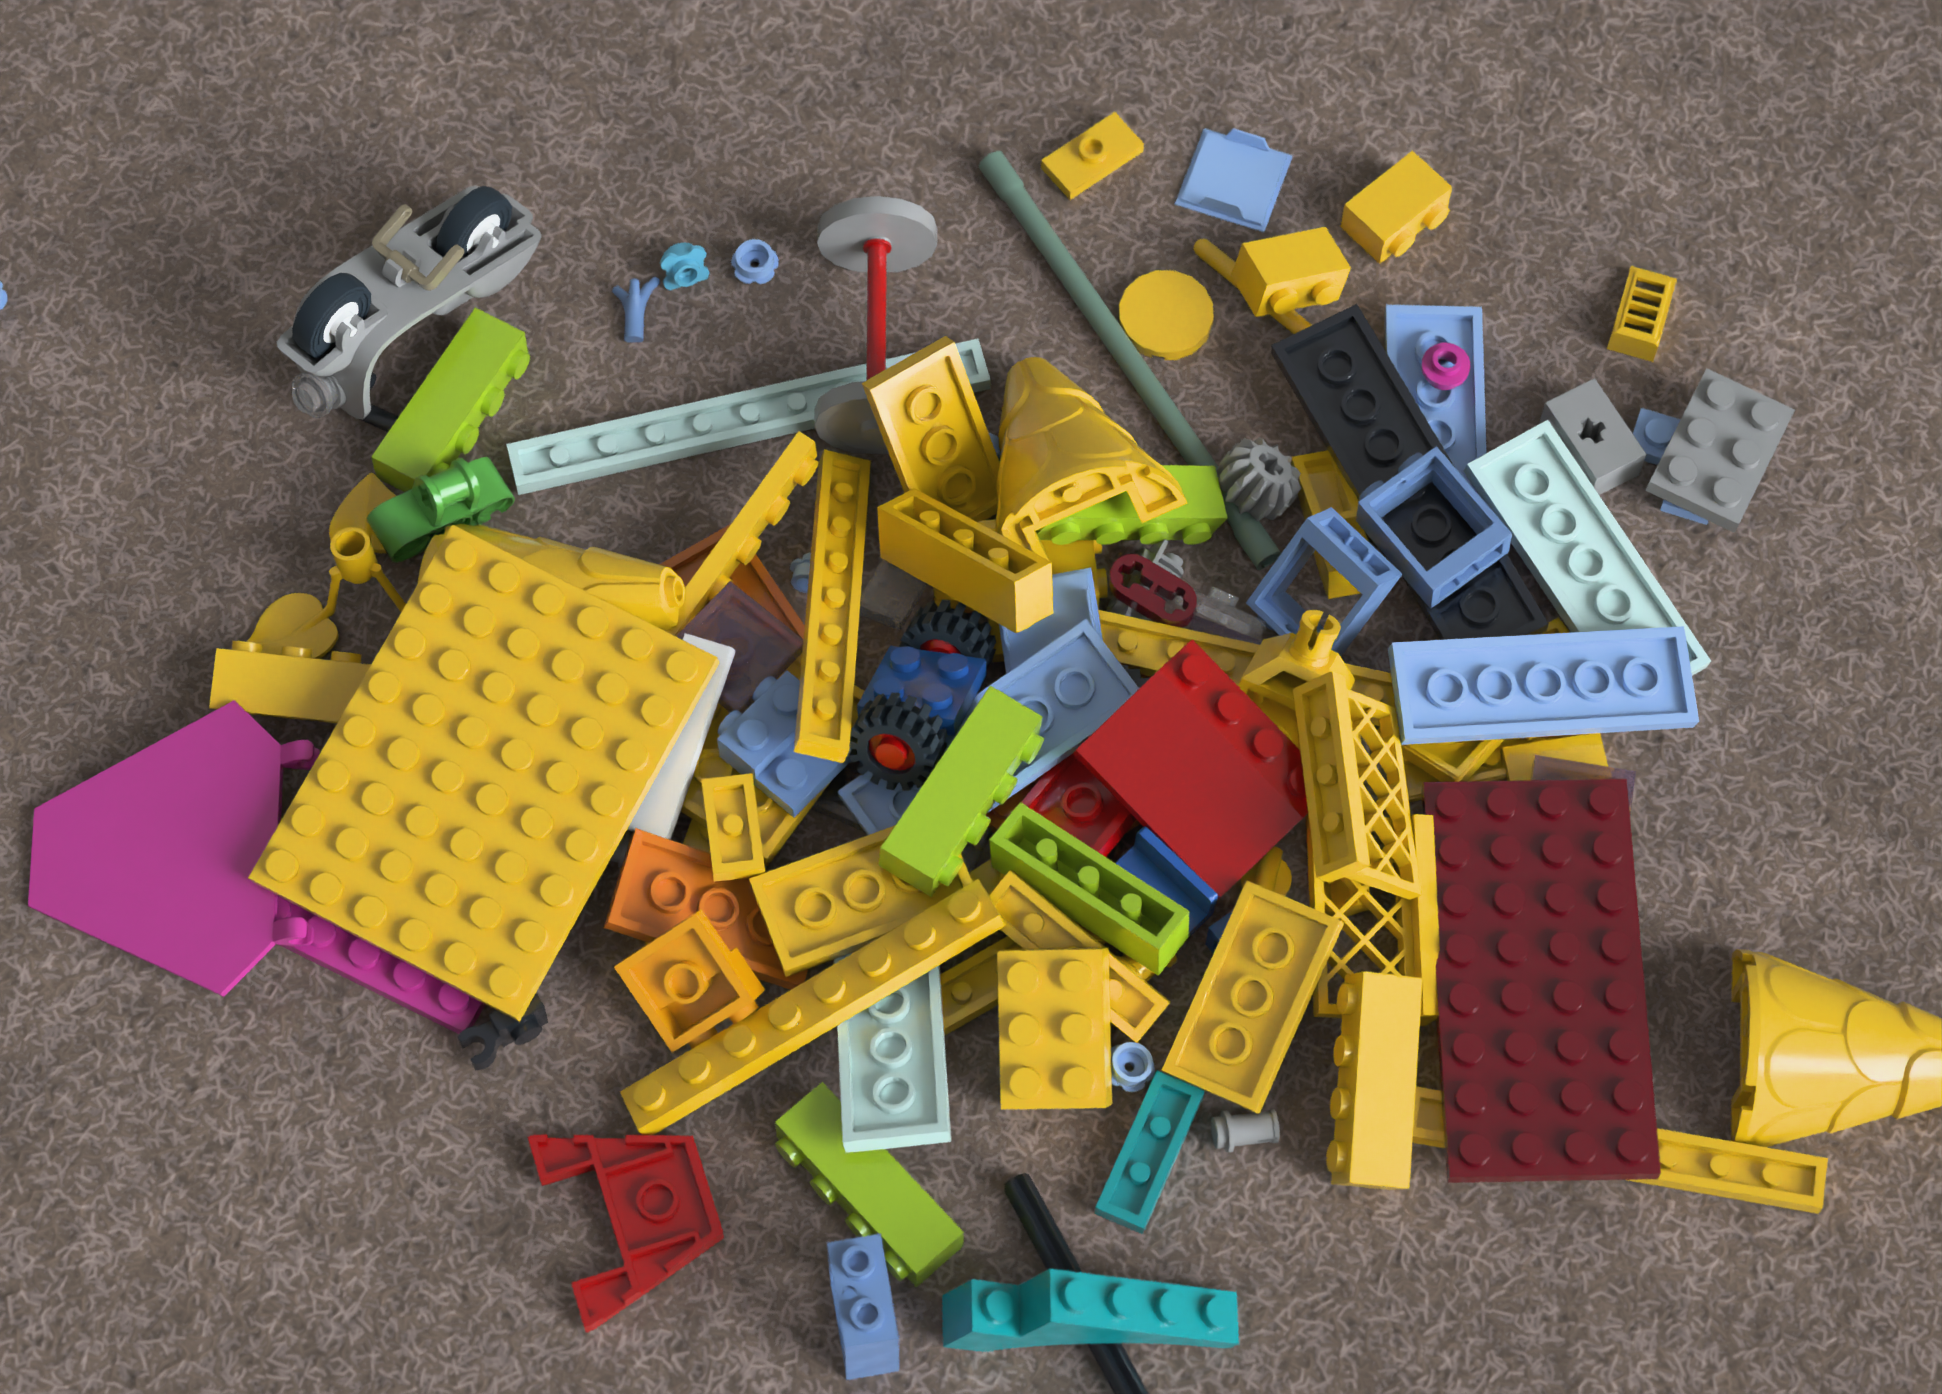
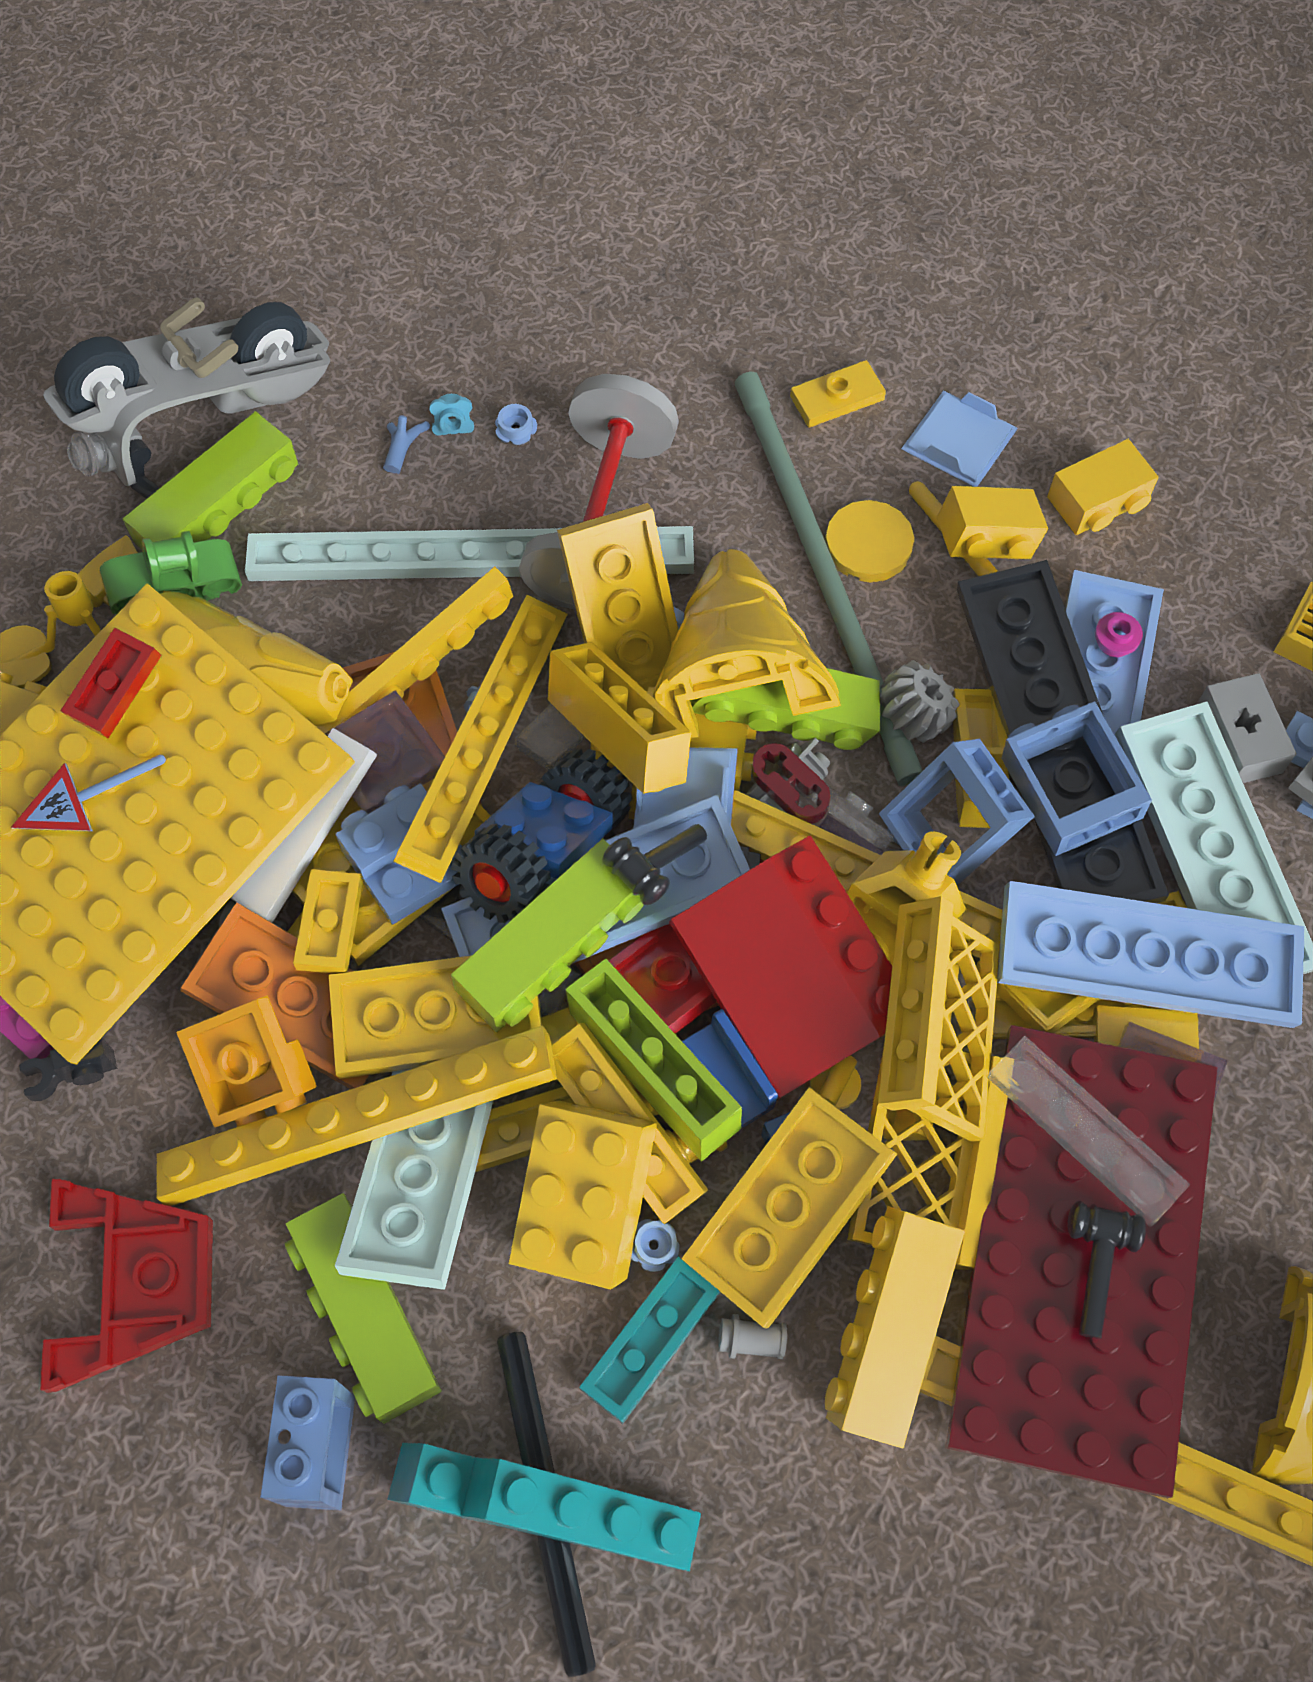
camera: 15 degrees right, 0 degrees up
(435, 768) = (60, 804): none -> piece
(455, 635) = (111, 682): none -> red plate
(1039, 708) = (642, 871): none -> black piece
(1515, 862) = (1088, 1131): none -> clear plate
(1552, 950) = (1106, 1230): none -> black piece

